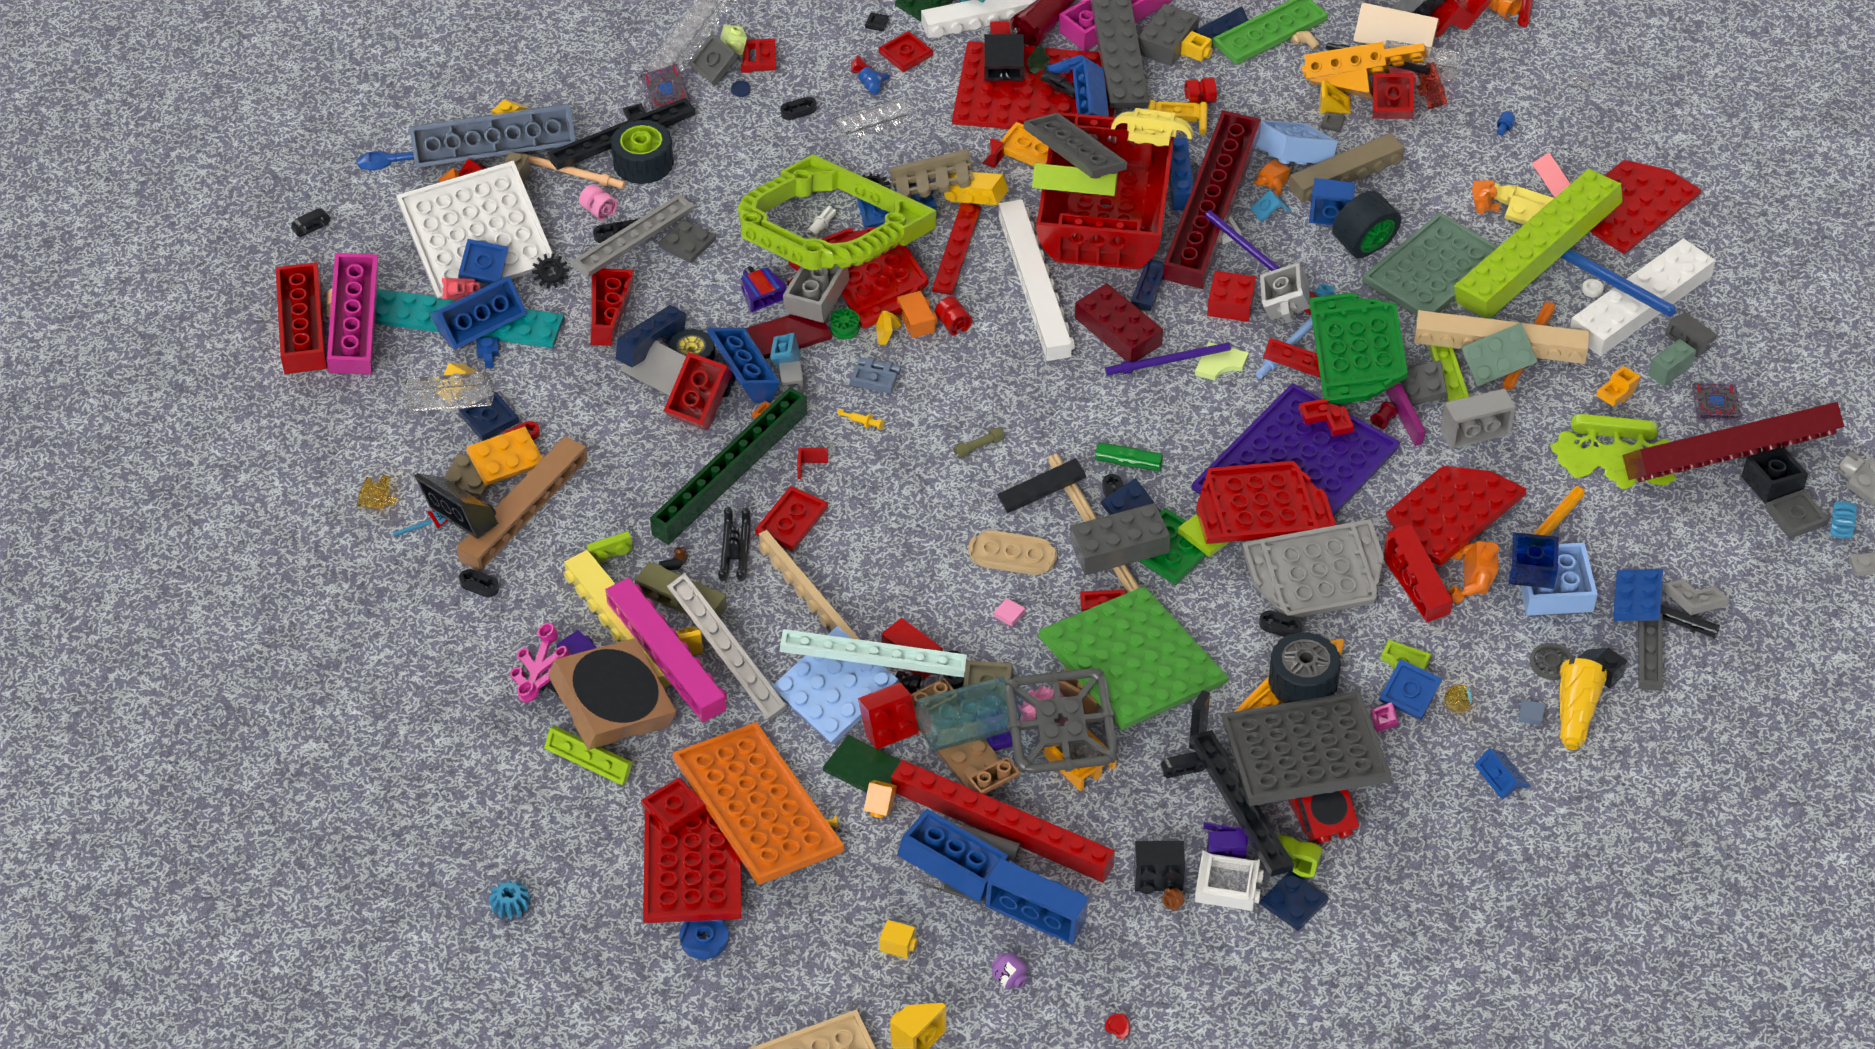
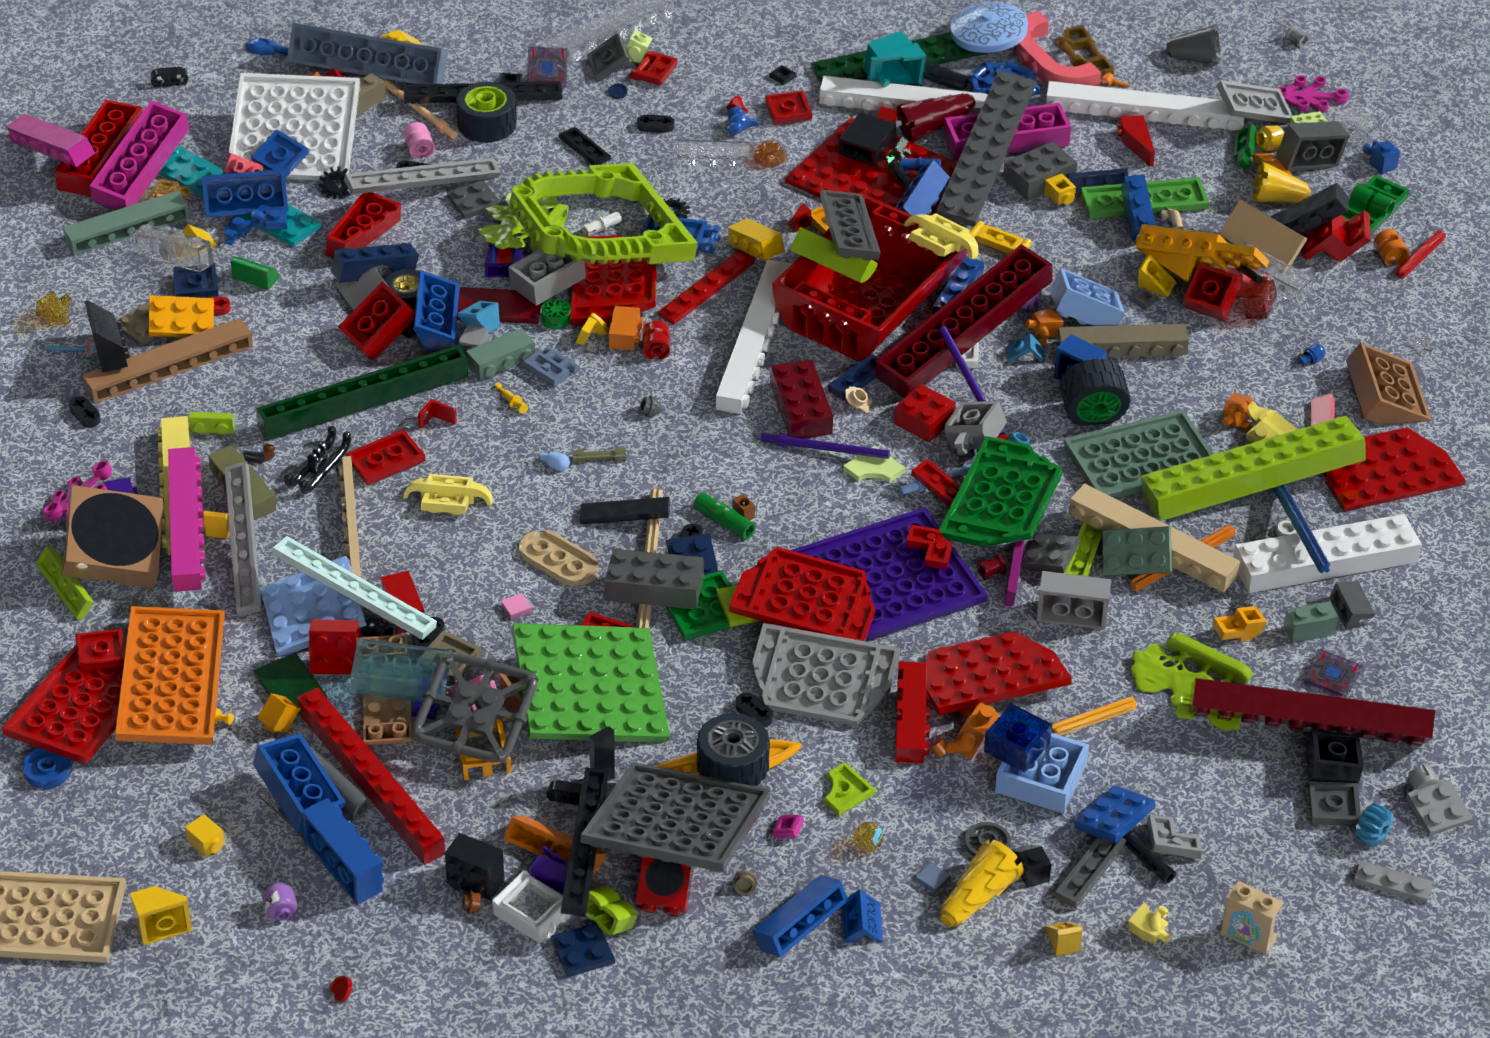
camera: 25 degrees right, 5 degrees down
(253, 327) = (50, 140): none -> dark pink brick
(379, 382) = (122, 222): none -> sand green brick
(394, 335) = (165, 187): none -> clear yellow plate
(520, 327) = (272, 219): none -> blue plate
(538, 387) = (253, 273): none -> green brick
(746, 253) = (503, 233): none -> lime plant
(750, 153) = (584, 146): none -> black tile
(826, 379) = (500, 353): none -> sand green brick
(872, 531) = (448, 493): none -> light yellow plate
(923, 101) = (769, 154): none -> clear orange hair
(933, 168) = (726, 214): dark tan fence -> none
(945, 462) = (555, 460): none -> light blue cylinder
(990, 379) = (650, 406): none -> dark grey plate
(1141, 441) = (744, 507): none -> dark orange piece
(1164, 304) = (858, 399): none -> tan animal
(1192, 815) = (534, 835): none -> orange brick
(1200, 91) = (1033, 228): red wheel -> none
(1278, 39) = (1137, 203): none -> blue brick
(1388, 788) = (744, 882): none -> dark tan plate
(1410, 689) = (828, 811): blue plate -> none
(1454, 792) = (800, 915): none -> blue brick
(1583, 130) = (1386, 387): none -> medium nougat slope
(1672, 717) = (1064, 937): none -> yellow slope
(1733, 681) = (1149, 925): none -> light yellow piece
(1813, 640) = (1251, 917): none -> tan panel

